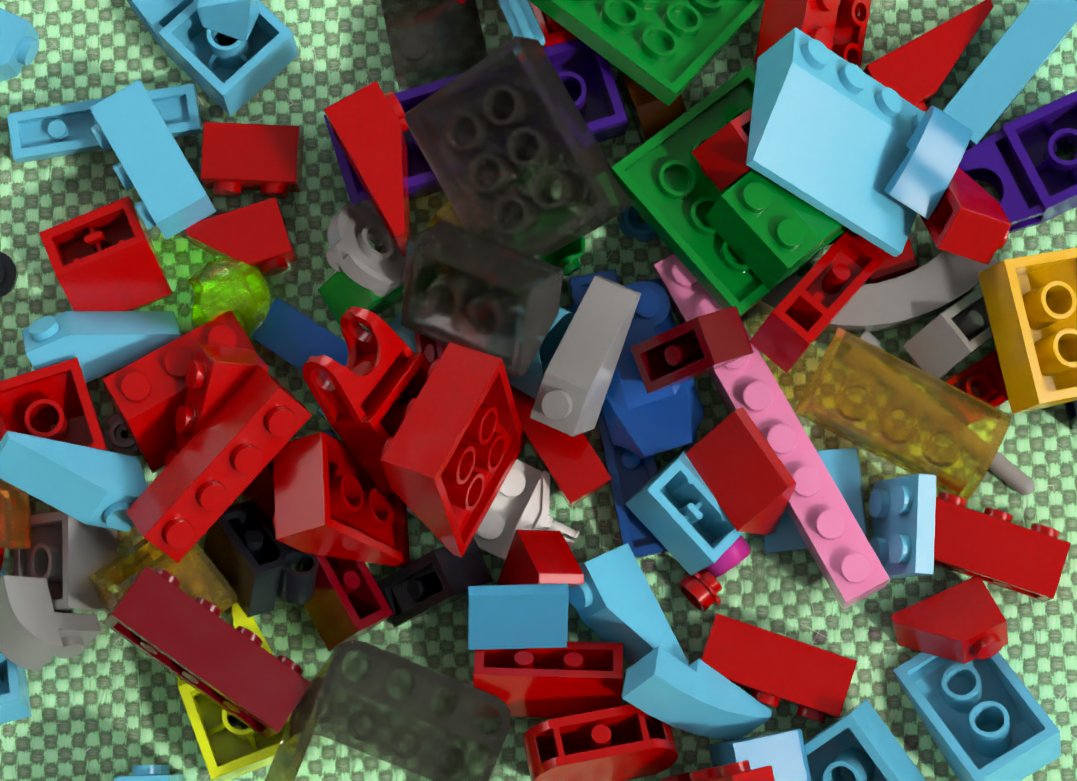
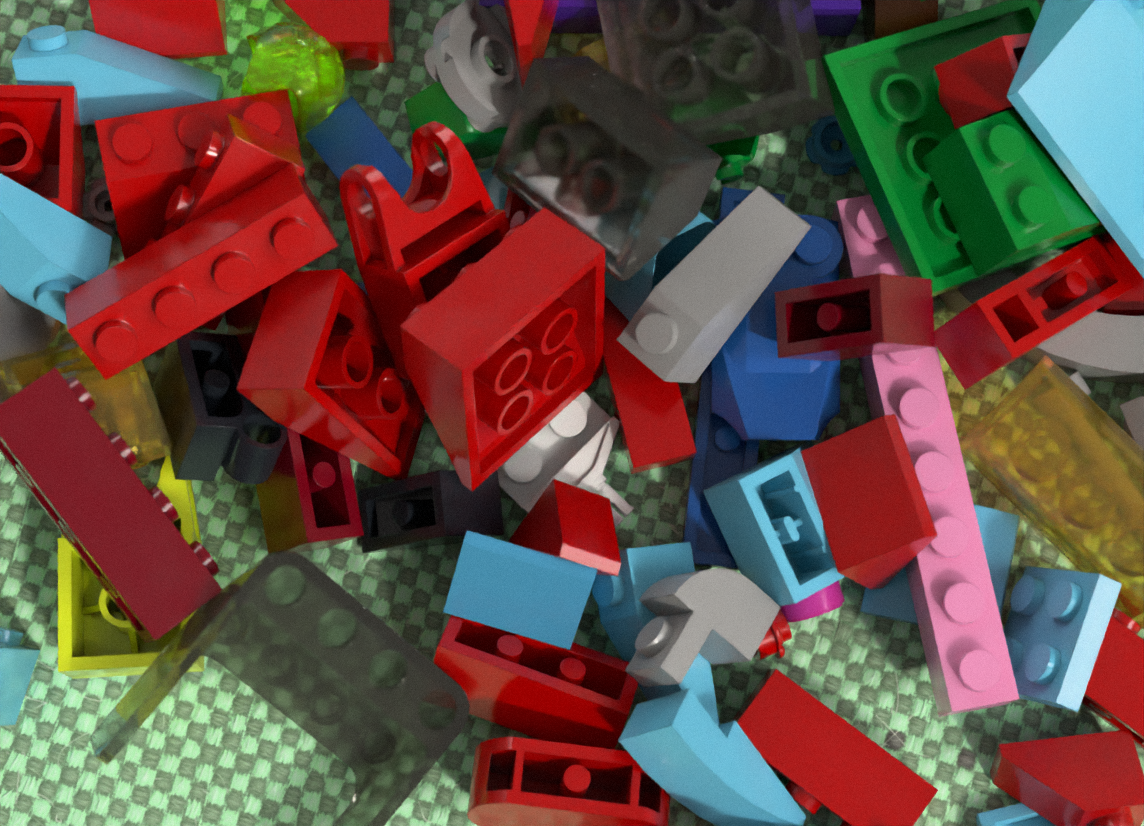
camera: 15 degrees right, 0 degrees up
(653, 589) = (700, 613): none -> light grey brick

